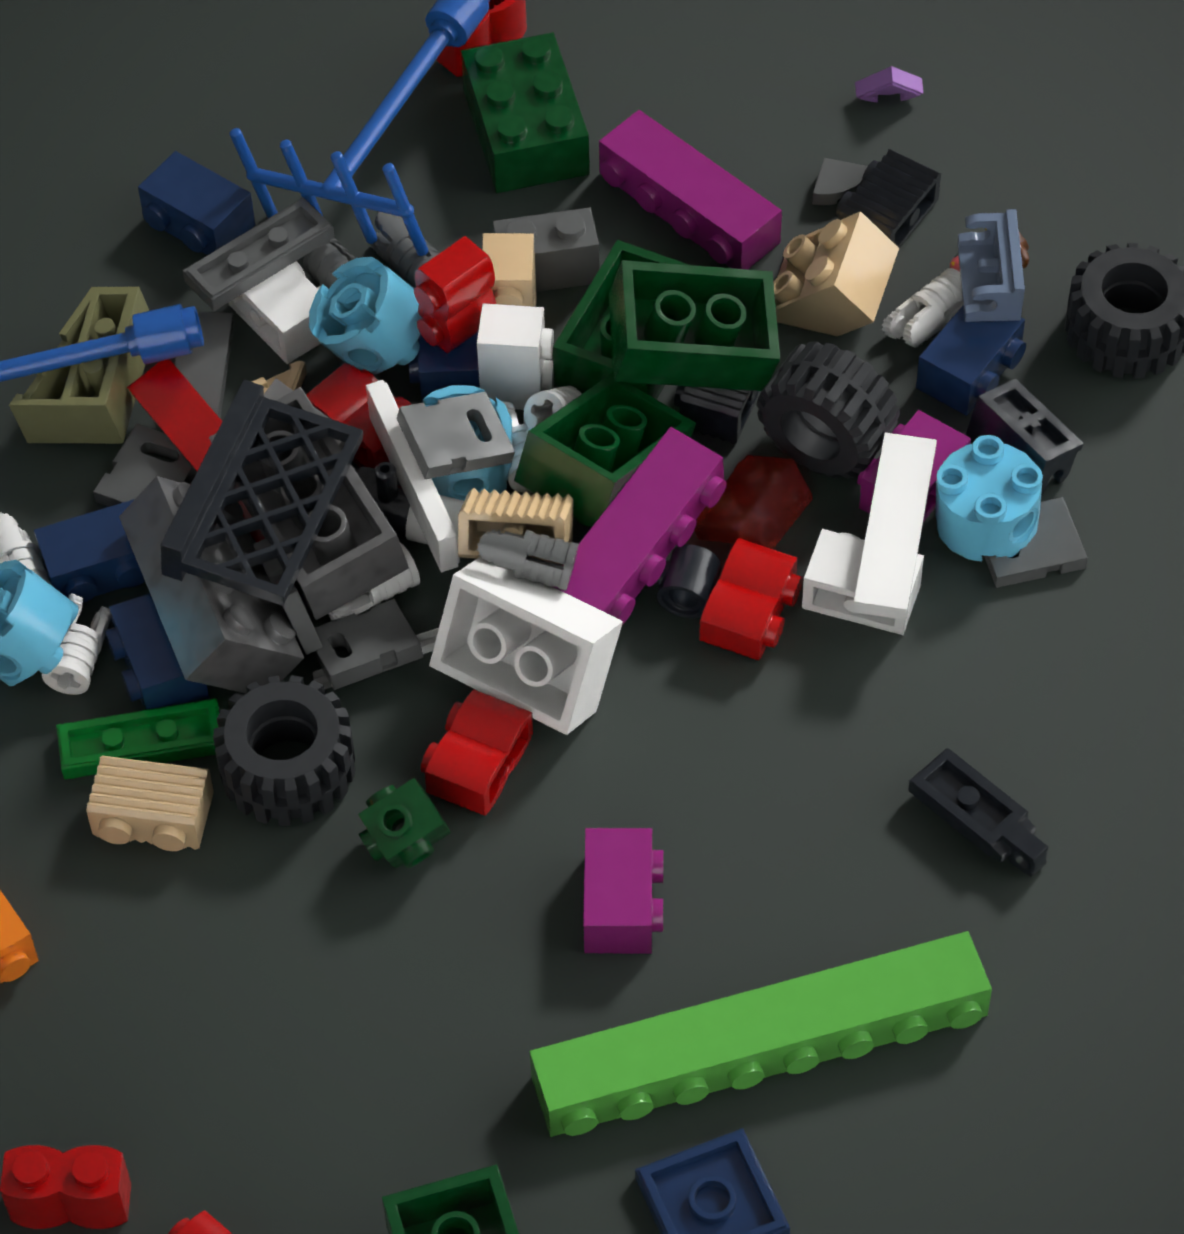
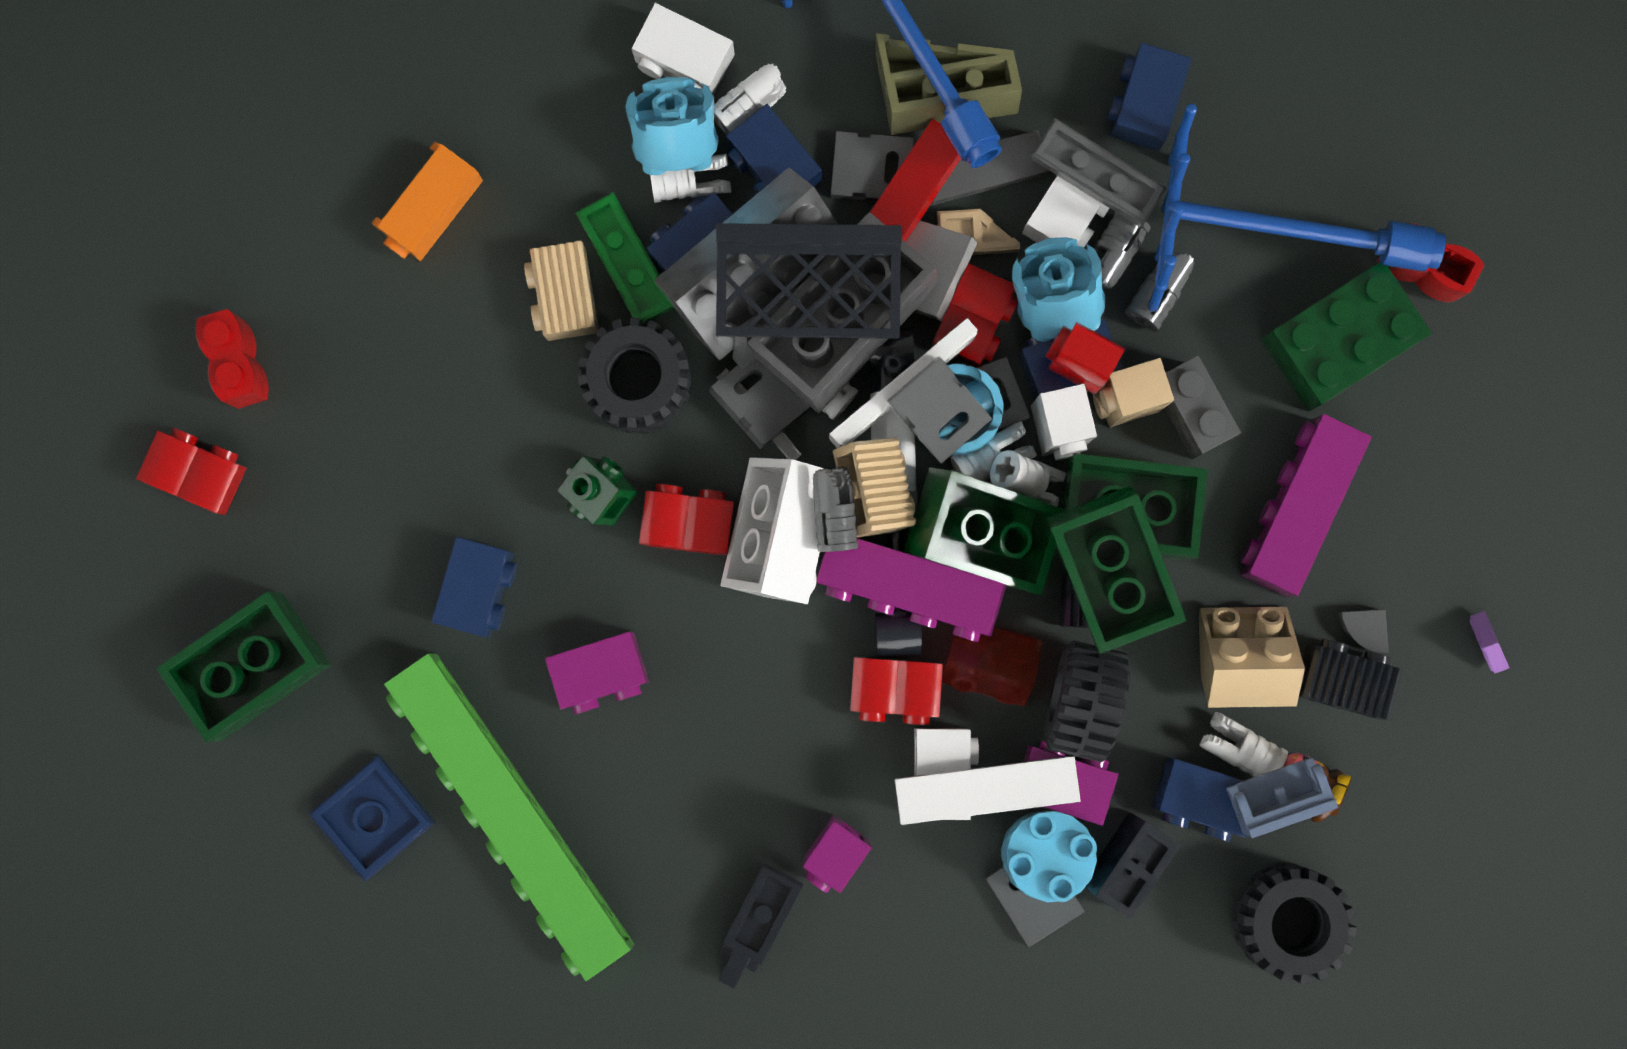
camera: 70 degrees right, 30 degrees up
(466, 995) = (474, 588): none -> dark blue brick
(920, 691) = (835, 855): none -> magenta brick

